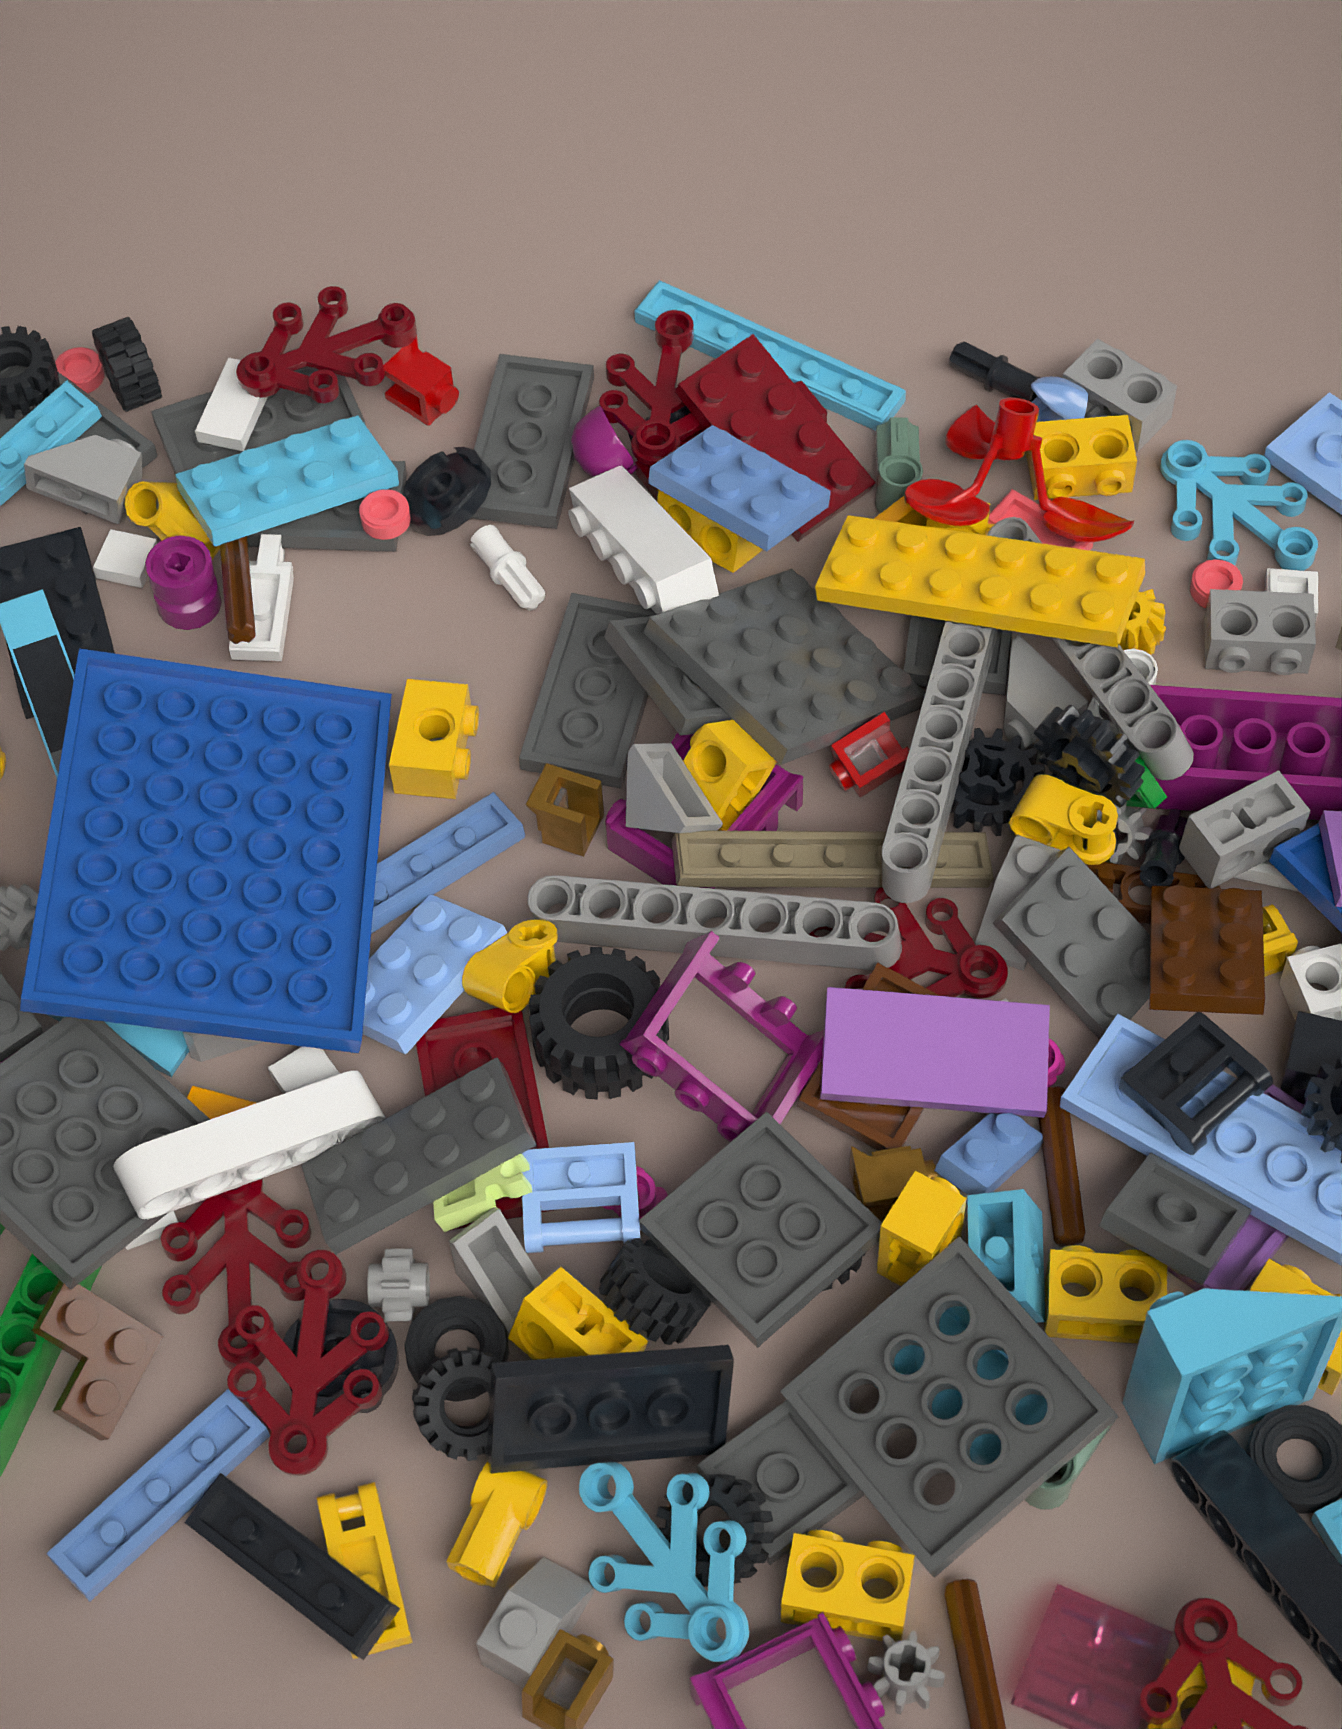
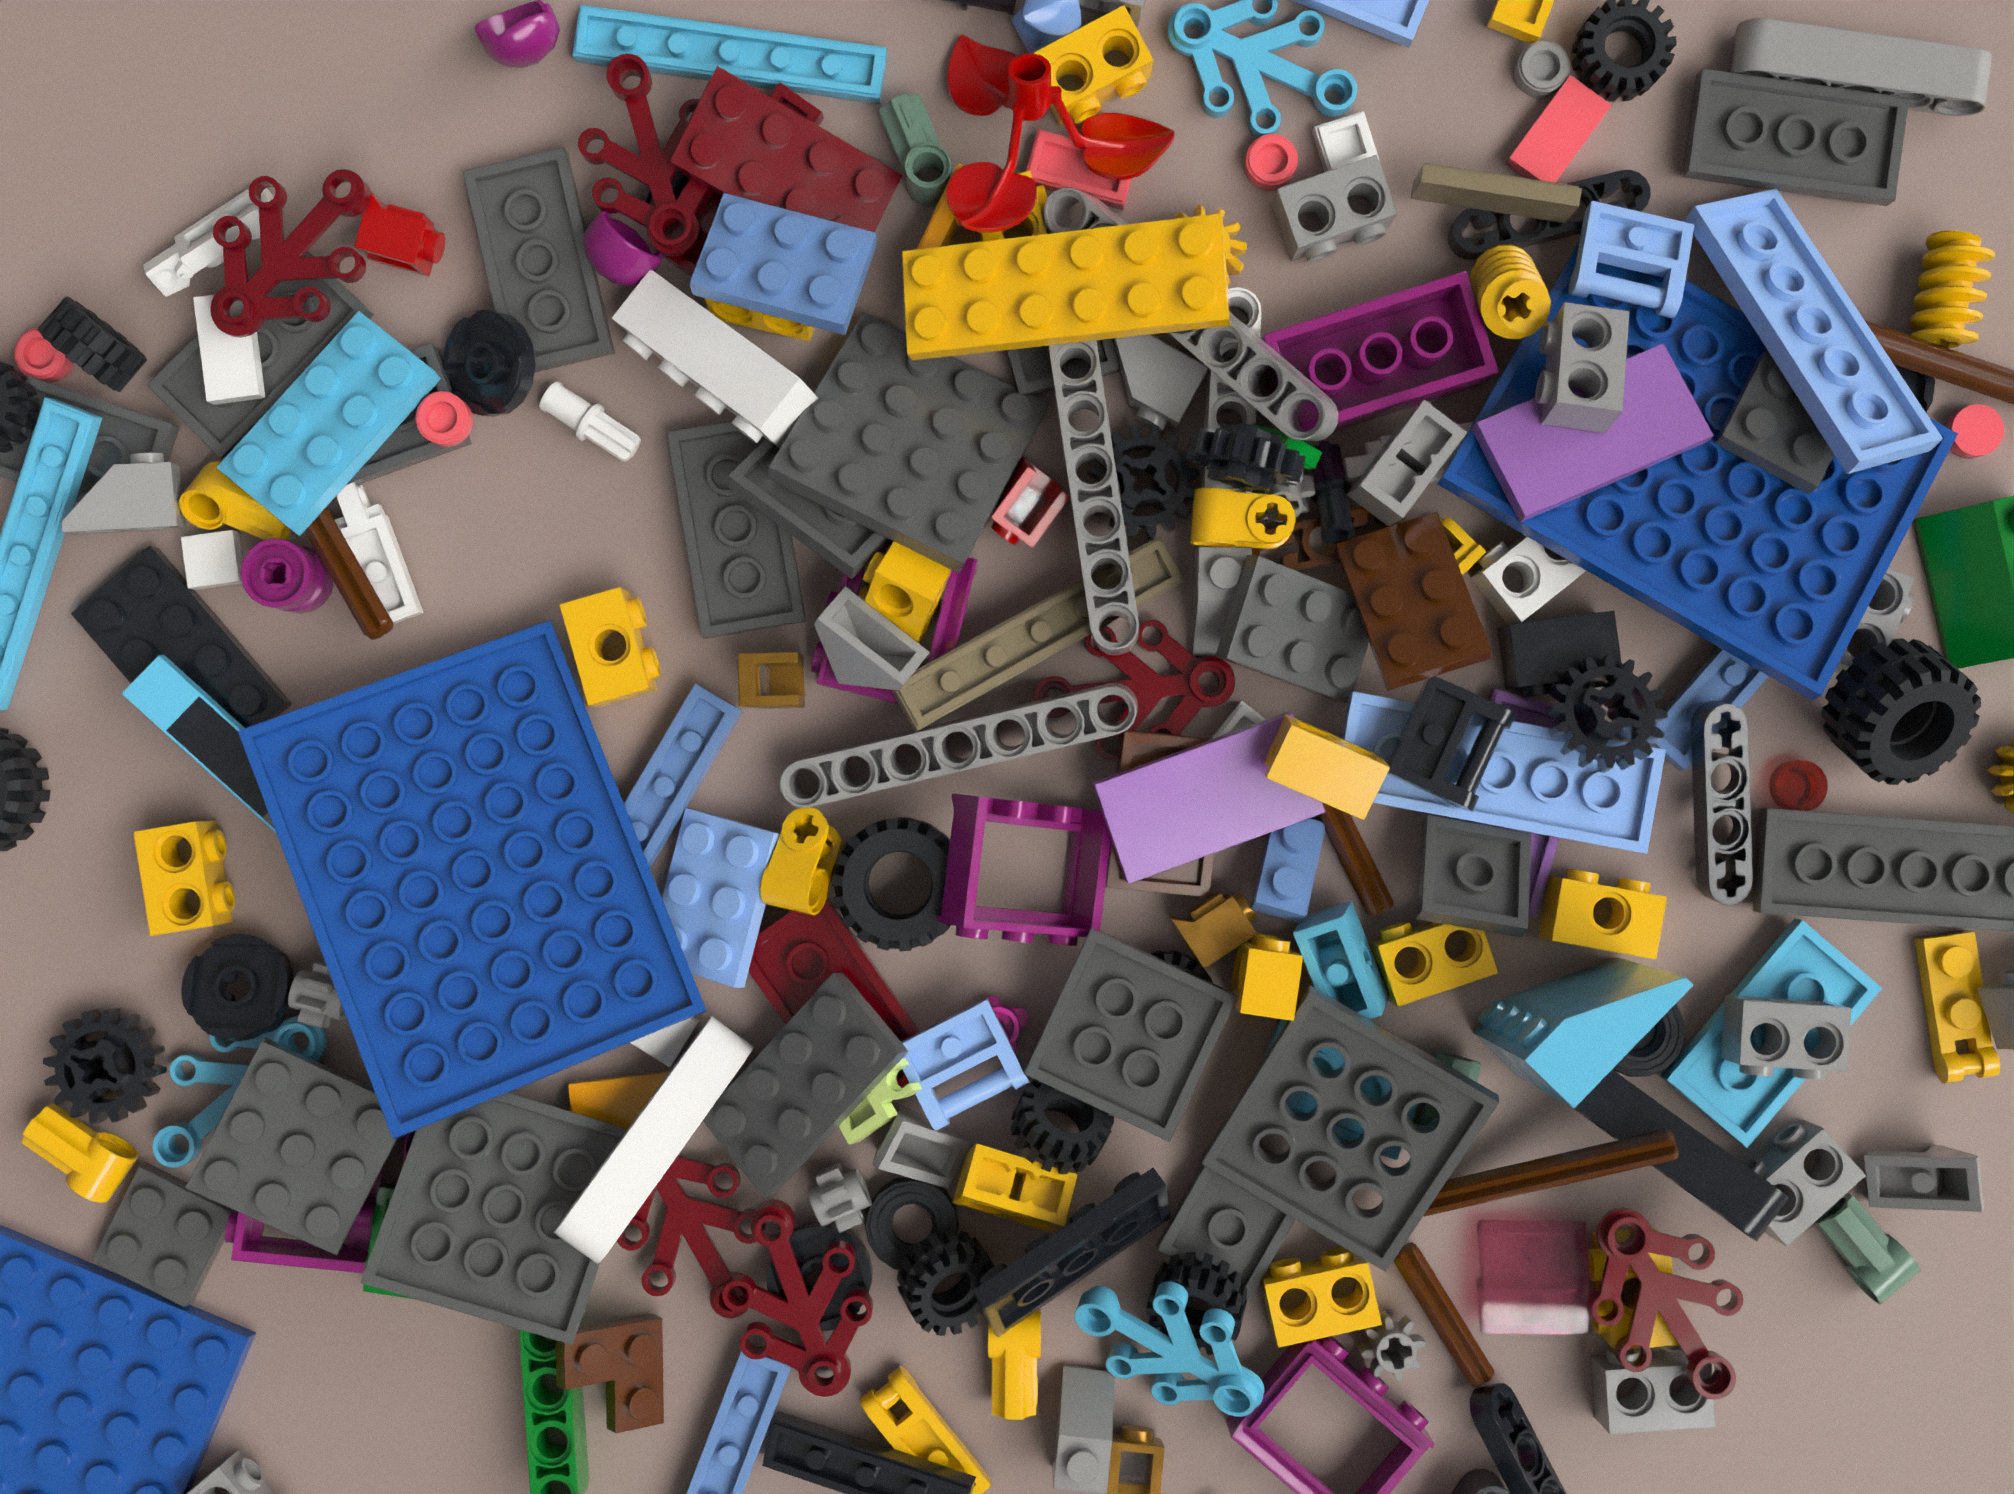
camera: 25 degrees left, 30 degrees up
(221, 343) = (197, 247): none -> white hinge
(599, 281) = (520, 34): none -> magenta hair
(1062, 1050) = (1325, 767): none -> yellow hinge
(1144, 1539) = (1556, 1171): none -> reddish brown axle

